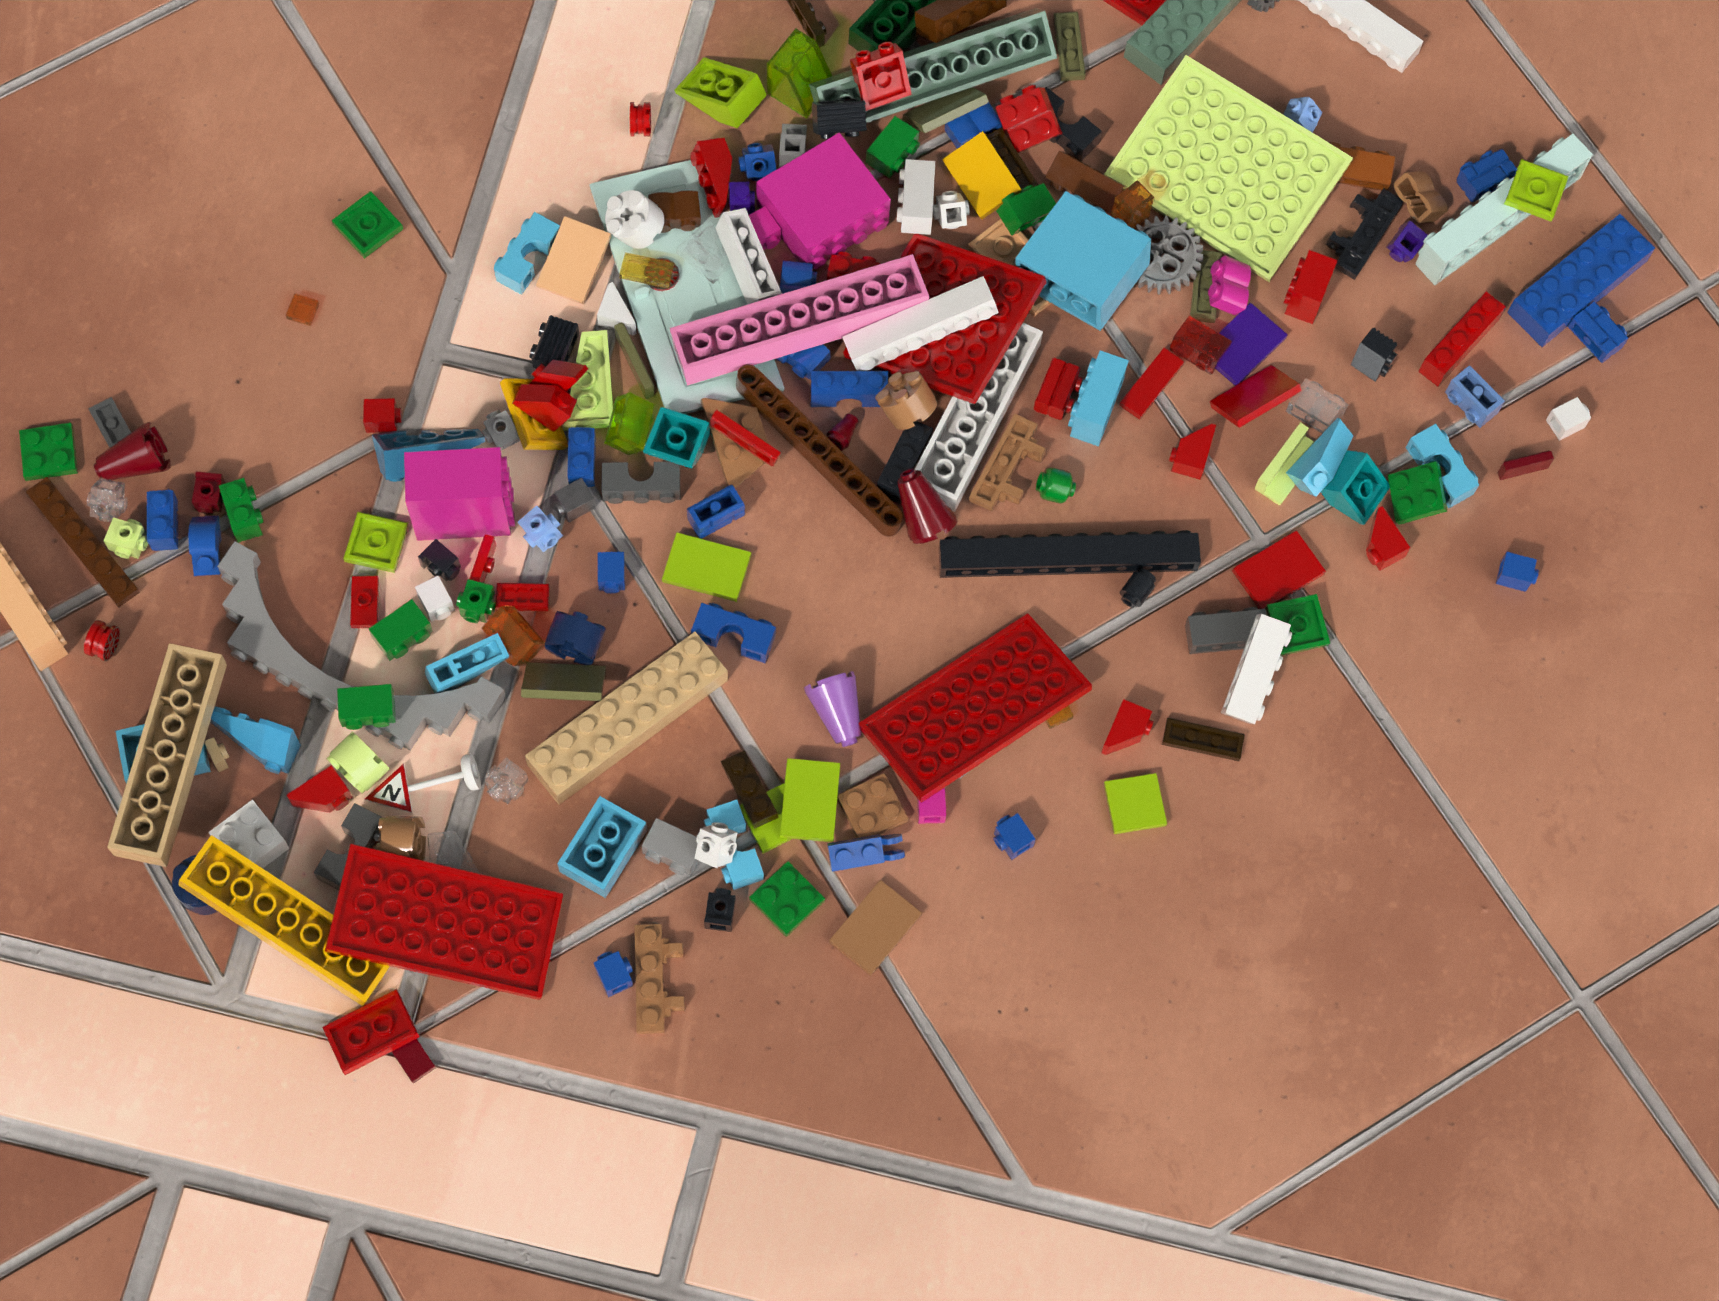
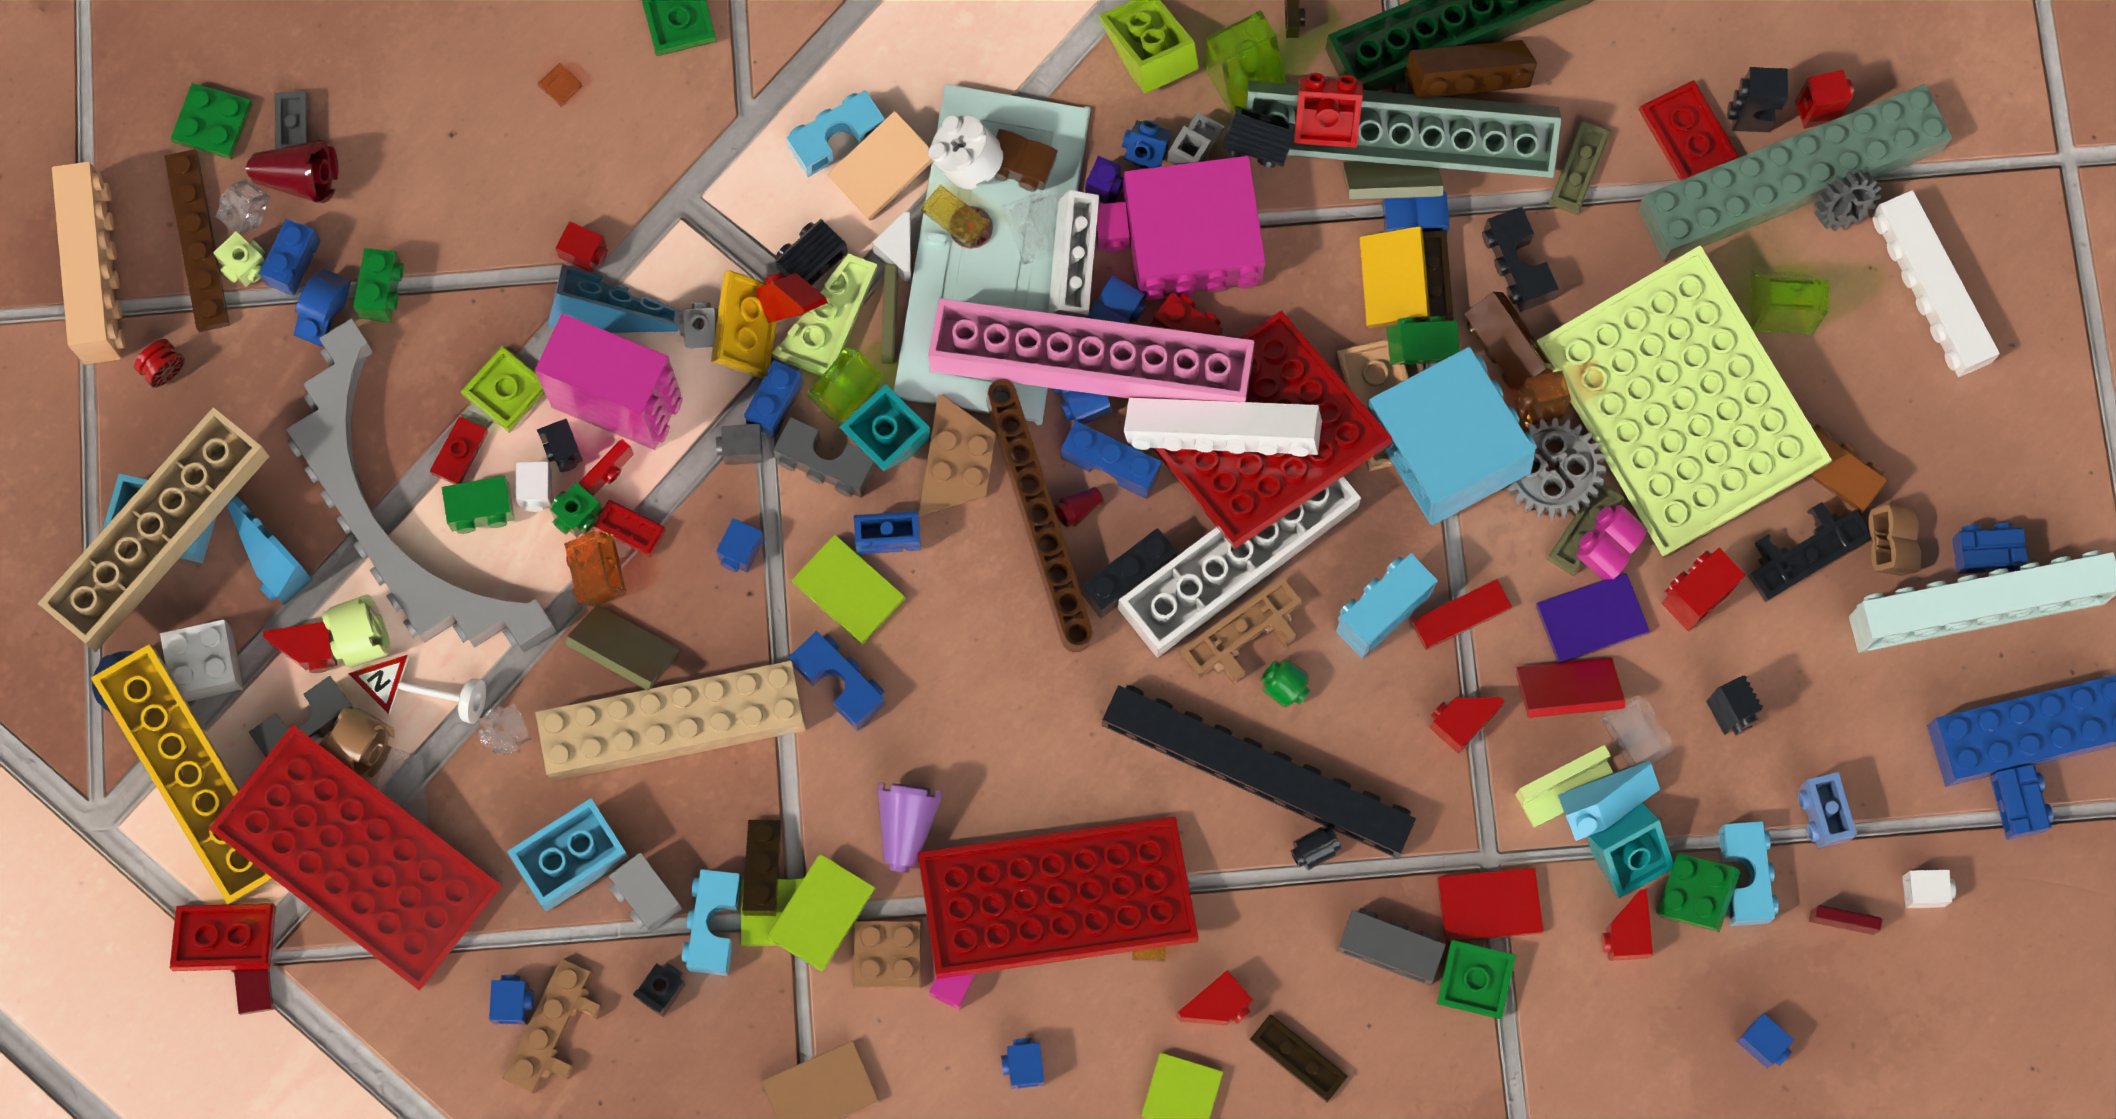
camera: 30 degrees right, 5 degrees up
(213, 500) = (352, 260): dark red brick -> none
(218, 753) = (217, 548): tan plate -> none
(366, 706) = (391, 575): green brick -> none
(465, 664) = (527, 577): medium azure slope -> none
(540, 529) = (686, 460): light blue brick -> none
(545, 404) = (760, 320): red slope -> none
(574, 637) = (658, 603): dark blue brick -> none
(640, 119) = (1040, 33): red wheel -> none
(713, 166) = (1094, 126): red slope -> none
(716, 845) = (685, 916): white brick -> none
(744, 438) = (960, 464): red tile -> none
(787, 899) = (741, 1011): green plate -> none
(863, 851) = (851, 1000): hinge -> none
(892, 147) = (1308, 197): green brick -> none
(906, 399) = (1162, 506): medium nougat brick -> none
(916, 196) = (1304, 269): white brick -> none
(923, 508) = (1117, 642): dark red cone -> none
(956, 215) = (1335, 303): white brick -> none
(1028, 118) = (1481, 235): red plate -> none
(1057, 388) = (1348, 570): red brick -> none
(1199, 345) = (1539, 596): clear red bracket -> none
(1256, 669) = (1396, 1009): white brick -> none
(1264, 70) = (1788, 301): none -> clear neon green slope
(1303, 112) = (1806, 377): light blue brick -> none
(1413, 239) = (1859, 588): dark purple brick -> none
(1462, 339) = (1852, 734): red brick -> none
(1536, 190) = (2029, 601): lime tile -> none

